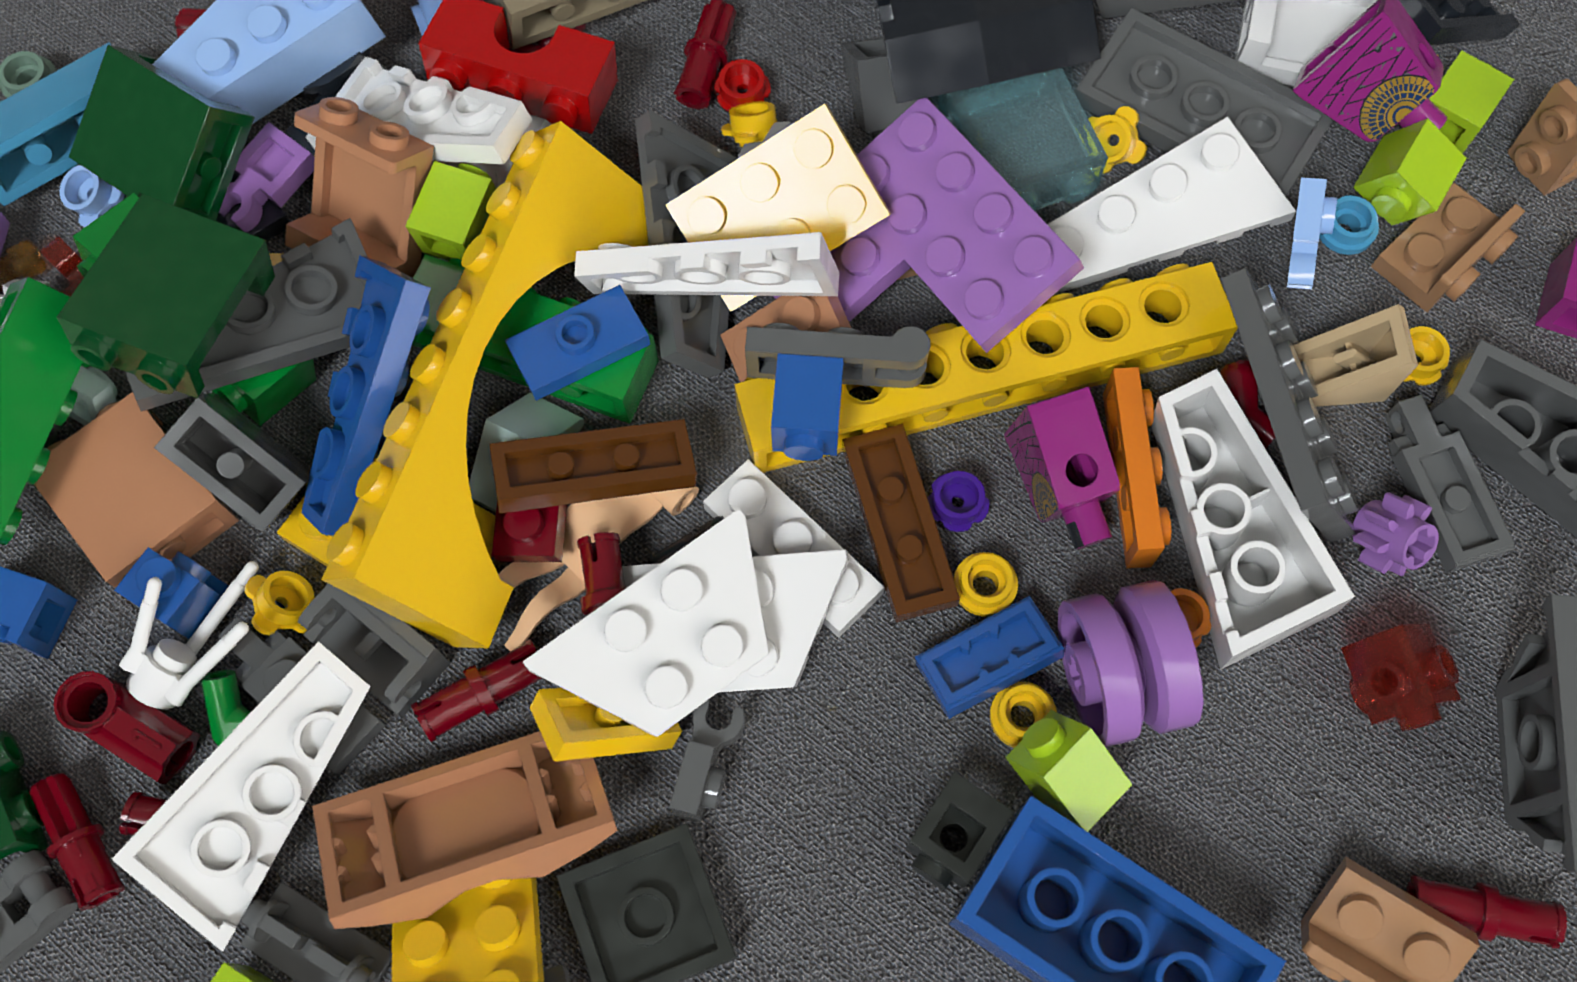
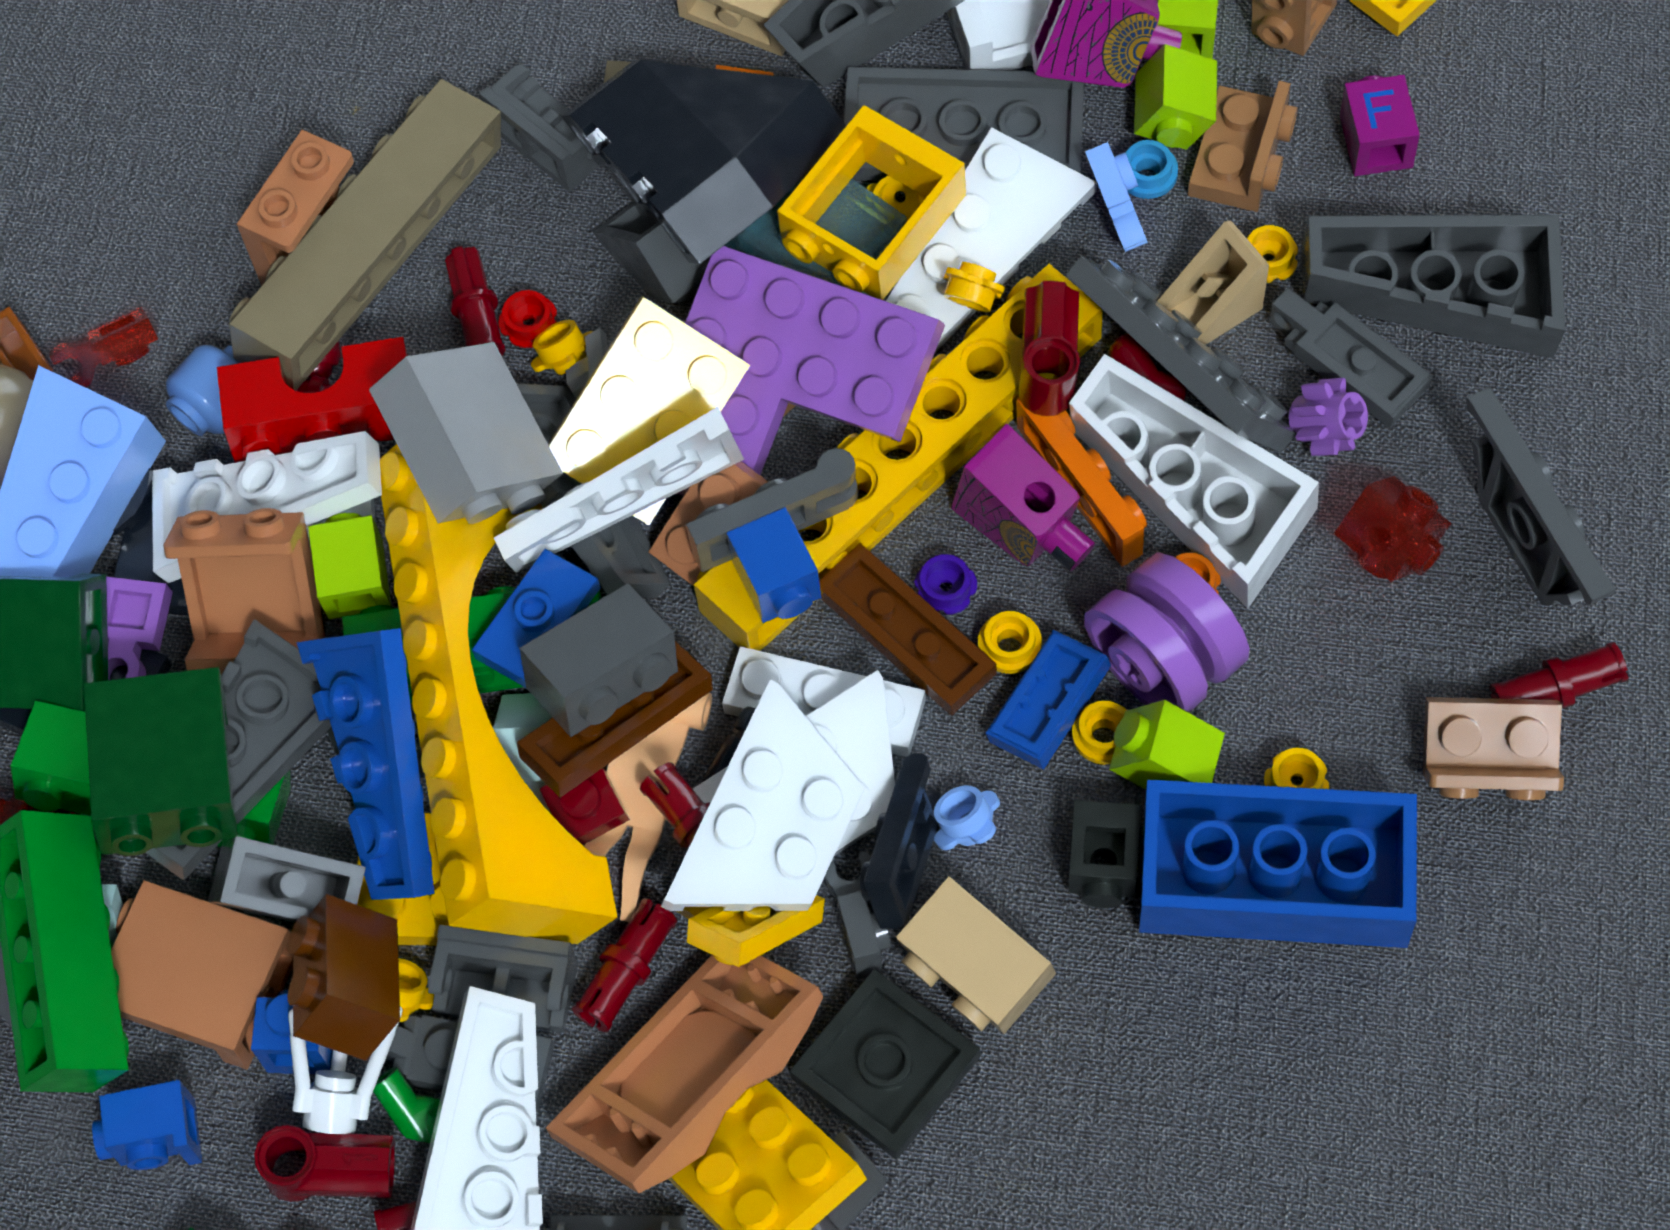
camera: 25 degrees left, 5 degrees down
(217, 573) = (344, 977): none -> reddish brown brick
(601, 409) = (599, 660): none -> dark grey brick
(605, 146) = (466, 433): none -> light grey brick
(775, 724) = (901, 846): none -> black hinge
(779, 867) = (975, 957): none -> tan brick
(851, 725) = (965, 817): none -> light blue plate
(1129, 95) = (901, 156): none -> yellow window
(1130, 247) = (972, 286): none -> yellow plate
(1169, 337) = (1049, 347): none -> dark red piece
(1192, 851) = (1297, 763): none -> yellow plate

